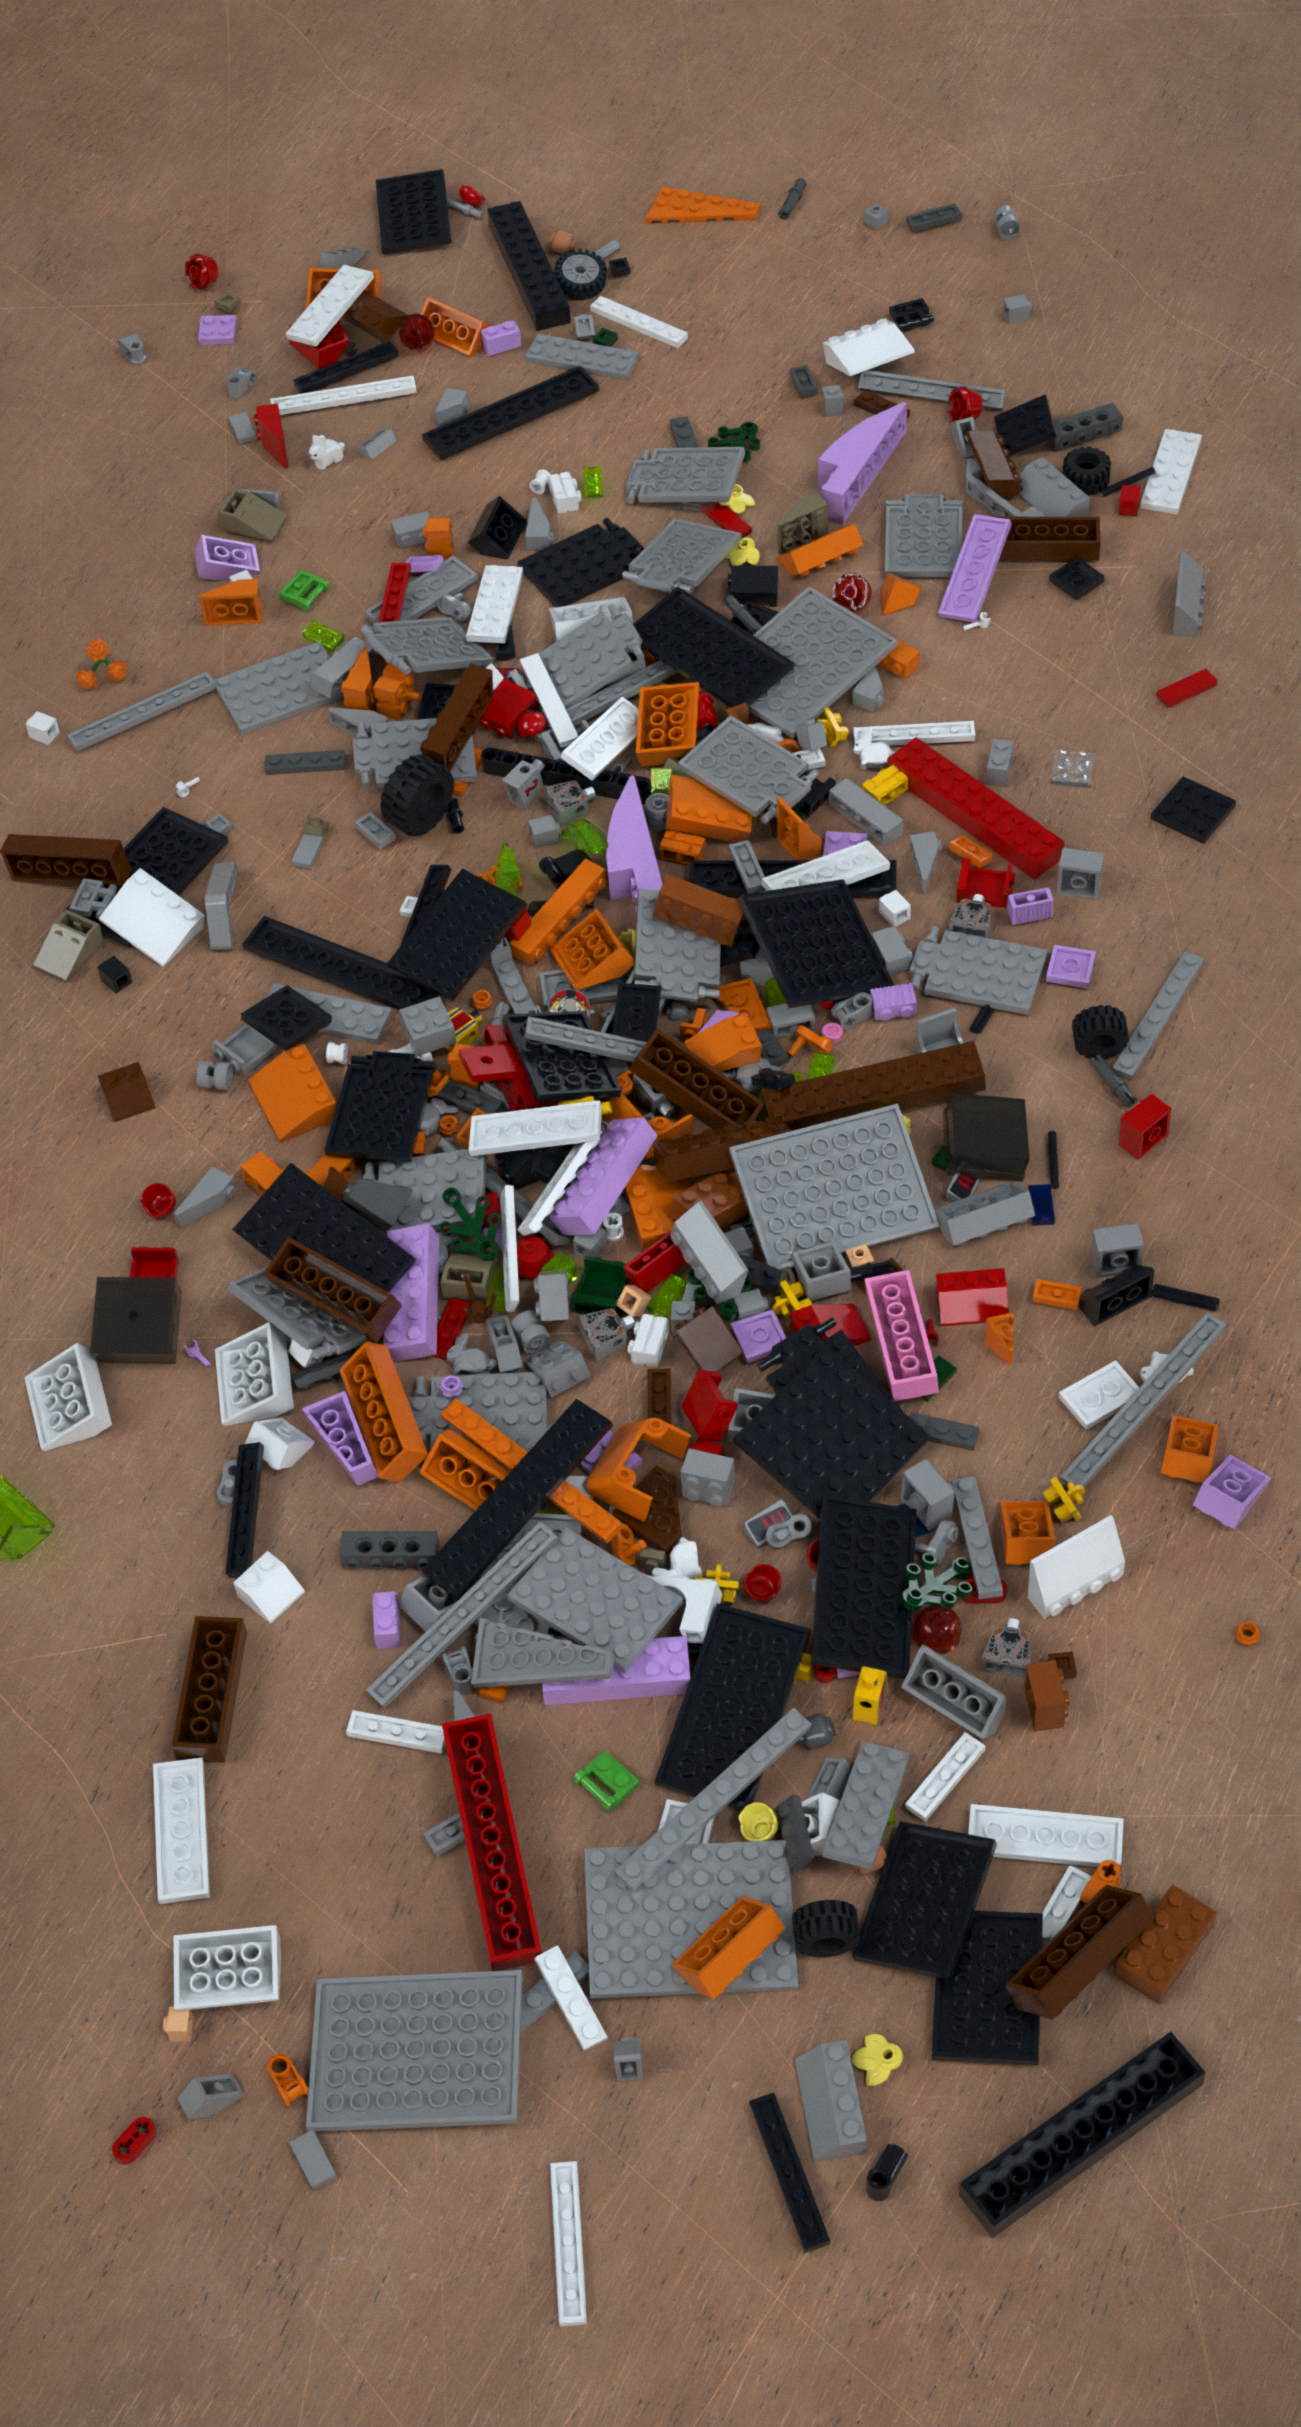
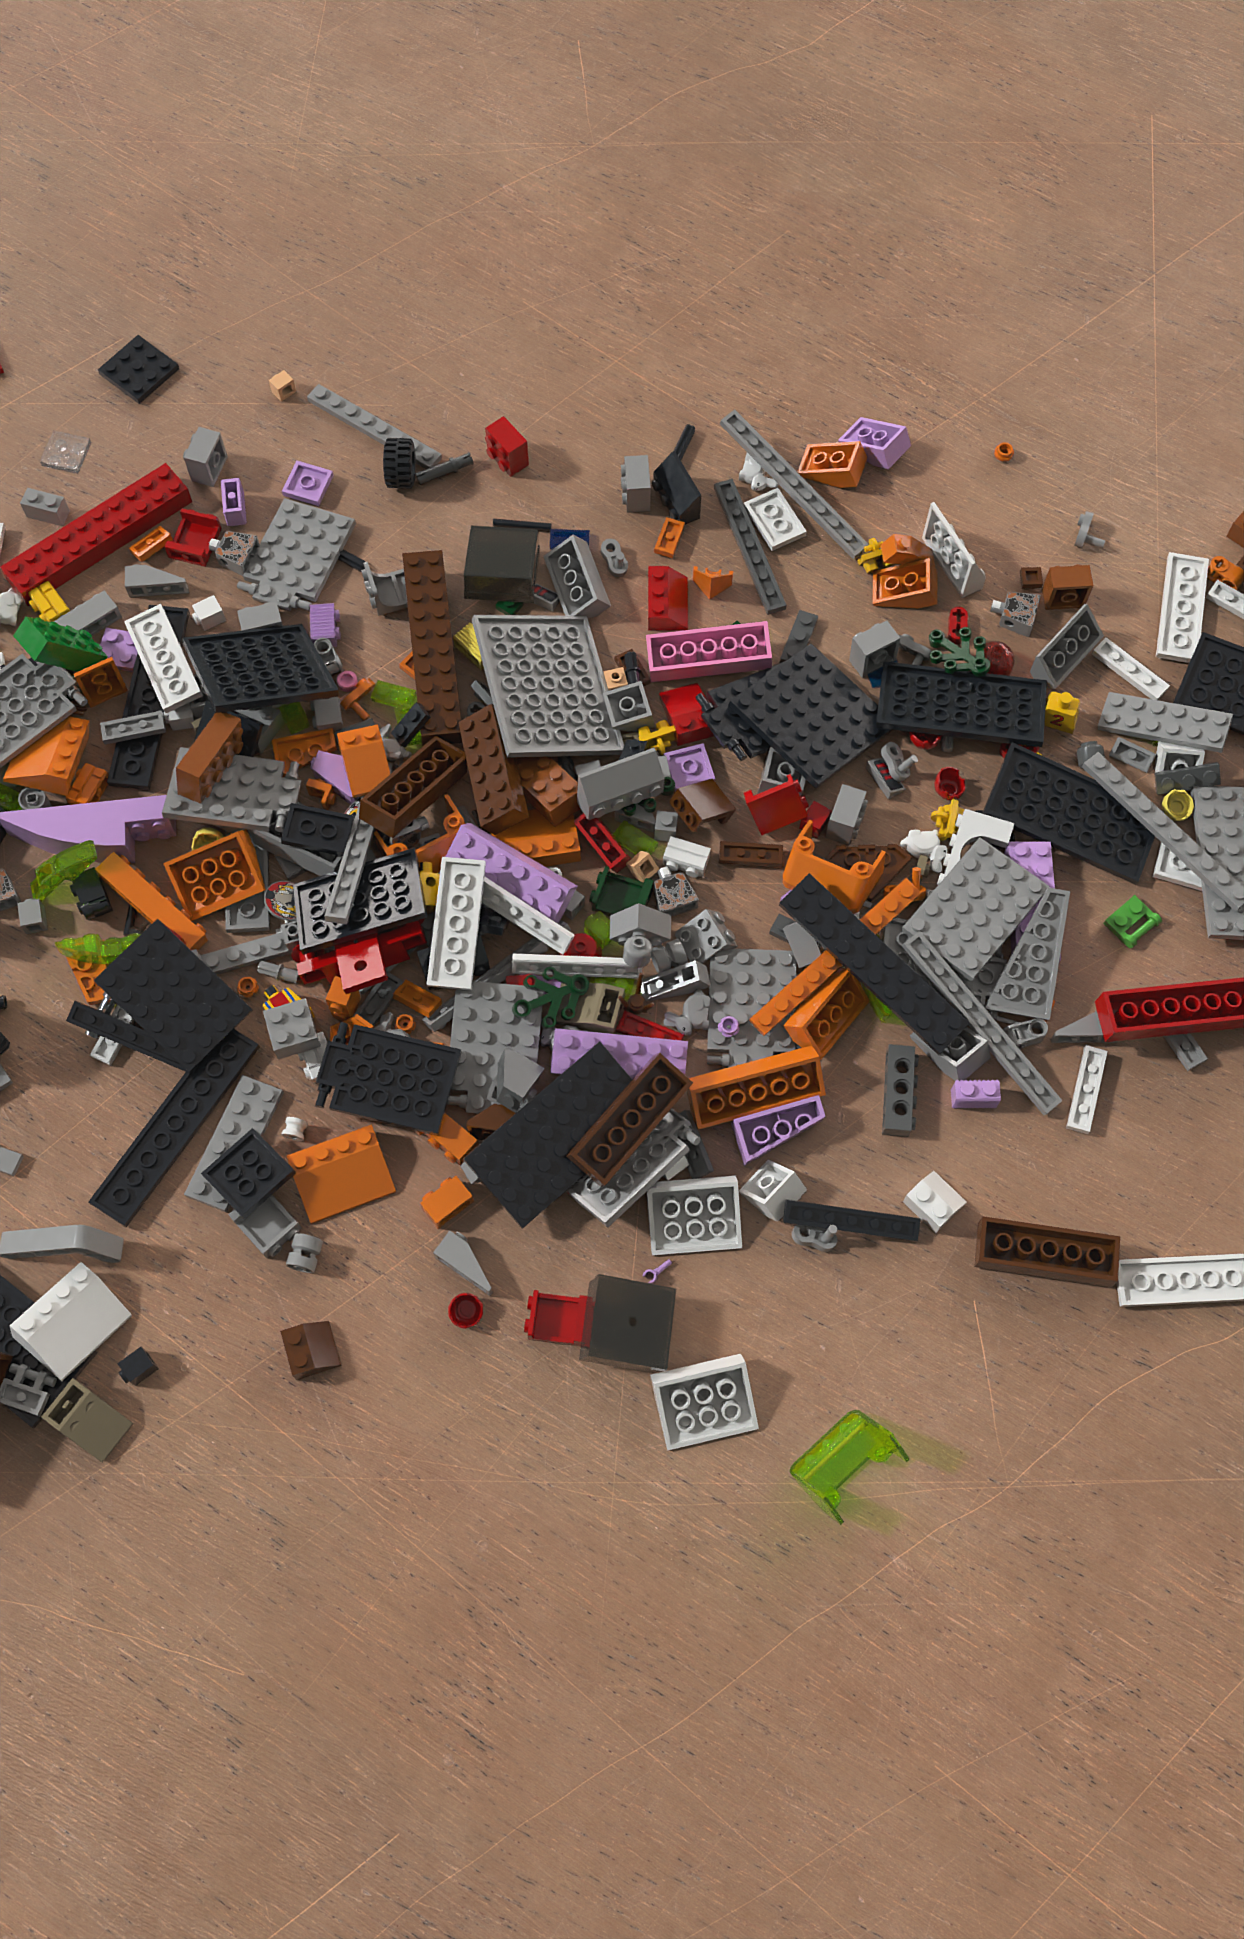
camera: 90 degrees left, 15 degrees up
(518, 1286) = (637, 951): none -> light grey head
(820, 789) = (58, 644): none -> green brick
(977, 1538) = (915, 621): light grey plate -> none
(1016, 1248) = (616, 561): none -> light grey piece
(1058, 1372) = (750, 546): none -> dark grey plate
(1063, 1514) = (905, 549): none -> orange slope
(1135, 1720) = (1084, 522): none -> light grey piece
(1193, 927) = (282, 385): none -> light nougat plate

